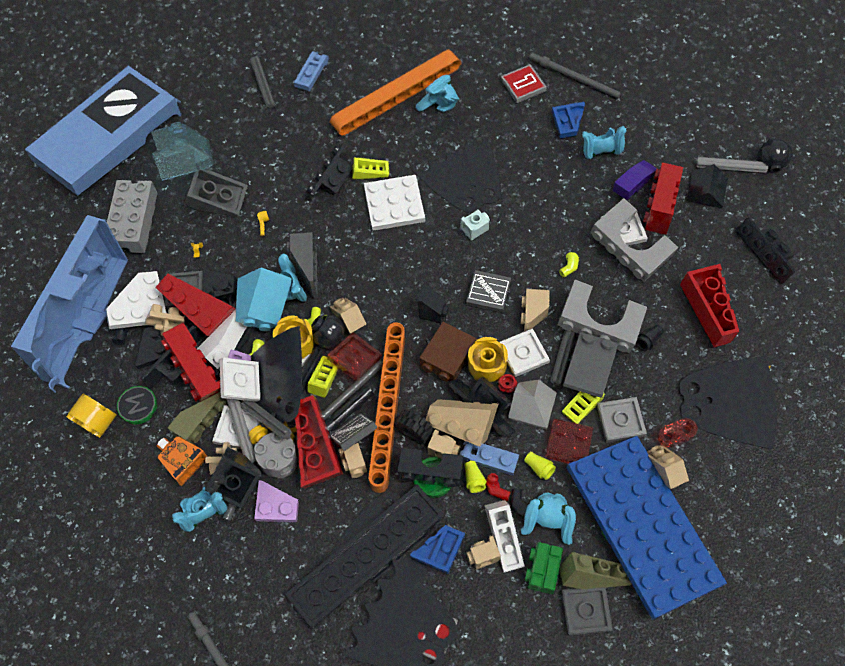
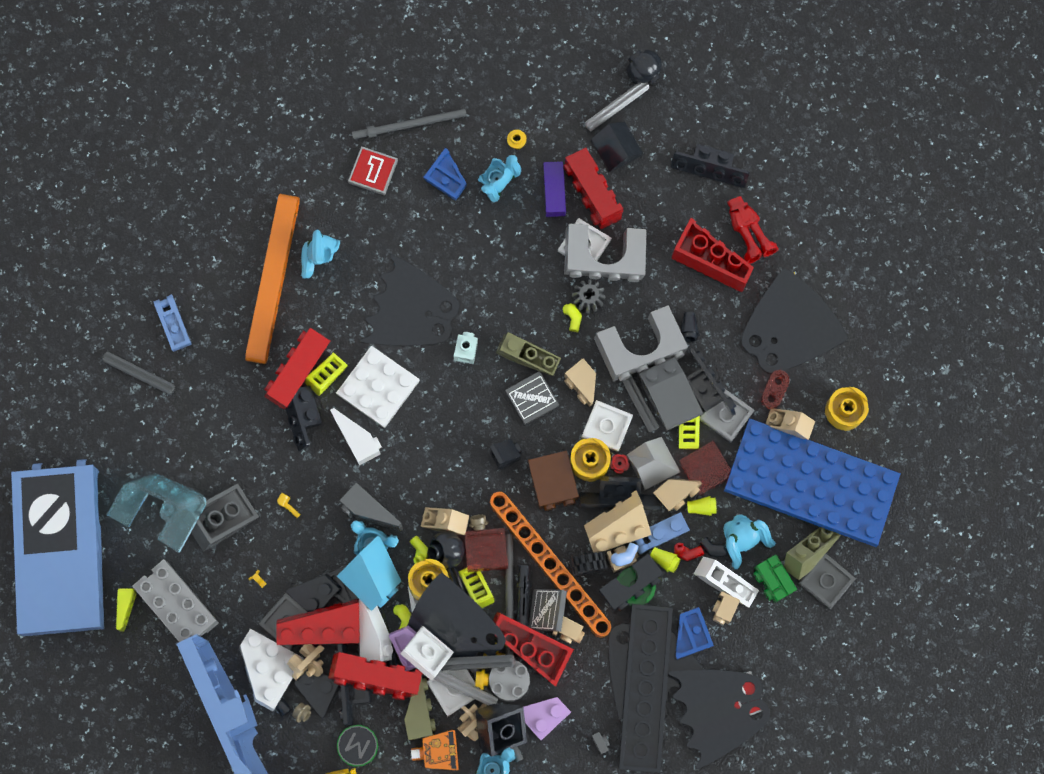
camera: 50 degrees left, 15 degrees up
(101, 196) = (125, 602): none -> neon yellow slope
(127, 350) = (301, 712): none -> dark tan plate
(292, 561) = (601, 742): none -> dark grey plate
(345, 223) = (358, 439): none -> white slope
(352, 141) = (297, 368): none -> red wedge
(368, 335) = (478, 522): none -> dark tan plate
(444, 444) = (625, 557): none -> light blue arm
(512, 258) = (527, 354): none -> olive slope
(528, 435) = (675, 491): none -> tan slope
(594, 259) = (596, 296): none -> dark grey gear
(622, 386) = (705, 388): none -> black bracket
(638, 133) = (516, 144): none -> yellow plate
(730, 483) = (839, 400): none -> yellow brick
(764, 302) = (743, 219): none -> red piece

